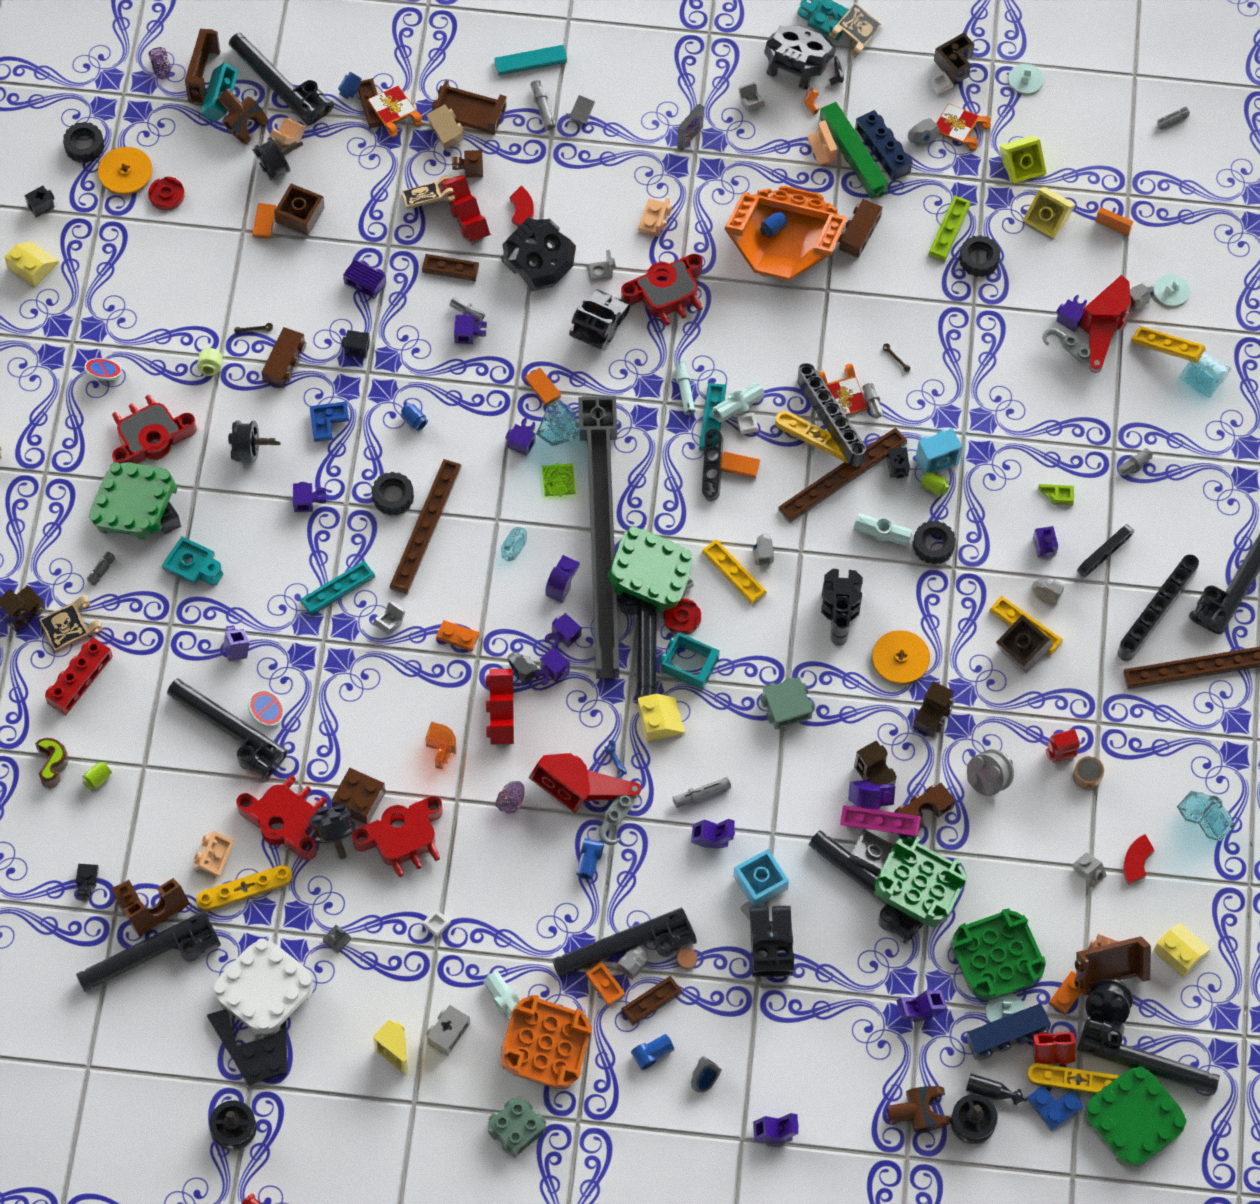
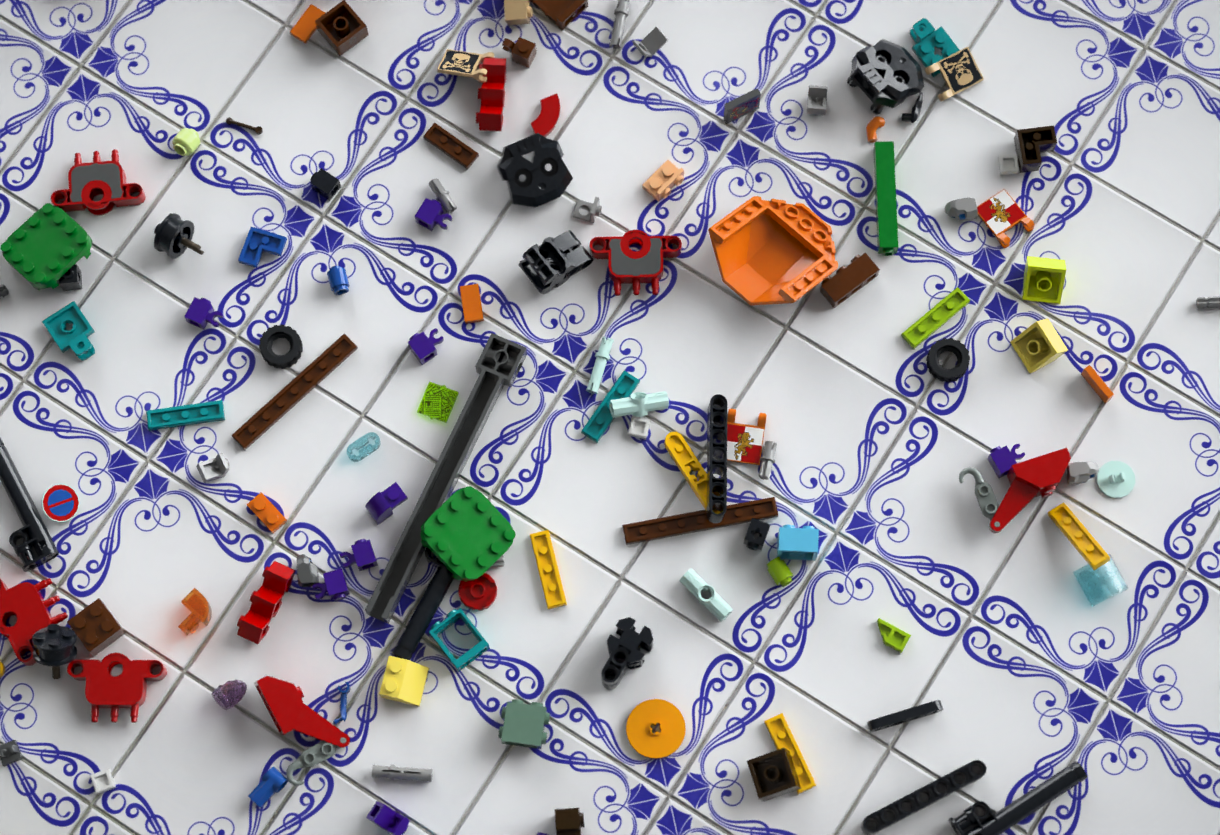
camera: 30 degrees right, 10 degrees up
(103, 369) = (89, 106): piece -> none
(235, 643) = (65, 428): dark purple brick -> none
(283, 357) = (253, 167): reddish brown brick -> none
(364, 278) = (366, 122): dark purple brick -> none
(558, 424) = (462, 349): clear light blue brick -> none
(712, 464) = (579, 453): black beam -> none
(740, 464) = (610, 466): orange tile -> none
(763, 550) = (585, 561): light grey rock -> none
(773, 224) = (767, 240): blue brick -> none
(823, 144) = (858, 179): light nougat bracket -> none
(883, 145) = (917, 205): dark blue brick -> none
(886, 347) = (810, 411): dark brown hinge -> none
(935, 707) = (653, 799): dark brown brick -> none
(939, 529) = (747, 644): black tyre -> none
(1025, 79) = (1093, 197): light aqua piece -> none
(1045, 542) = (852, 680): dark purple brick -> none
(1048, 590) = (829, 729): light grey rock -> none
(1135, 462) = (982, 639): light grey axle -> none

